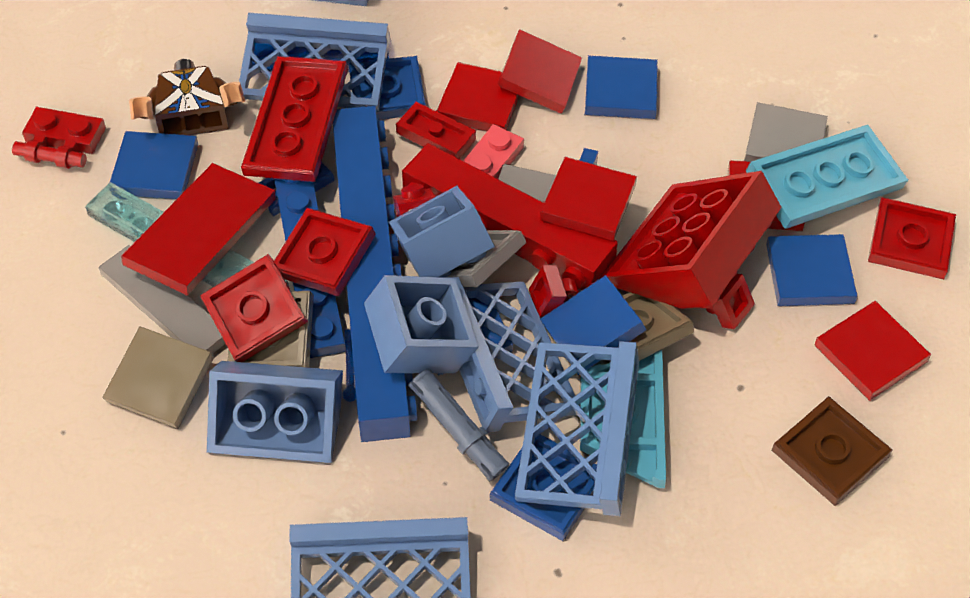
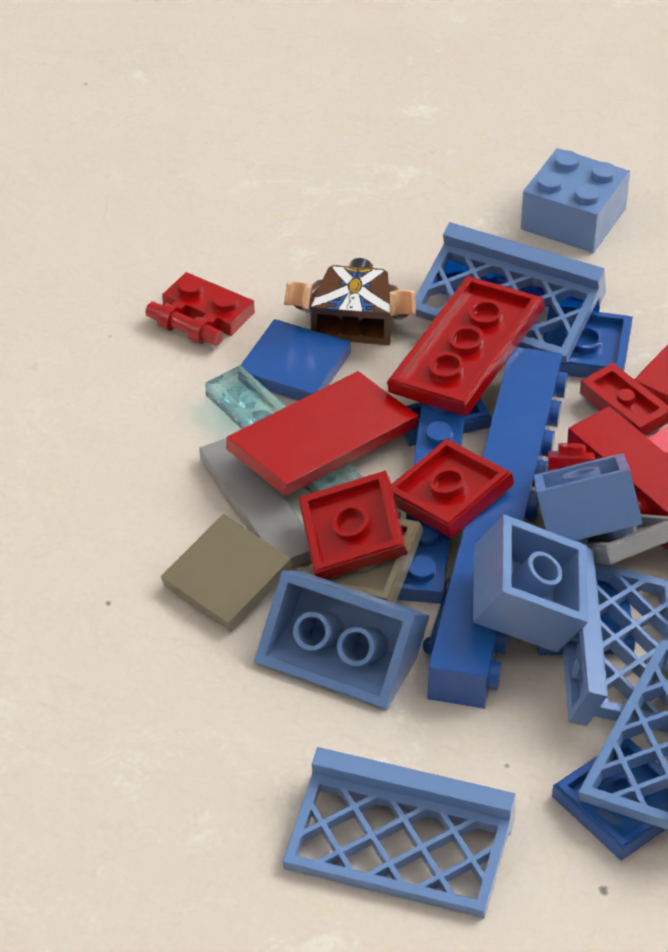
camera: 20 degrees right, 10 degrees down
(464, 431) = (549, 720): sand blue pin -> none

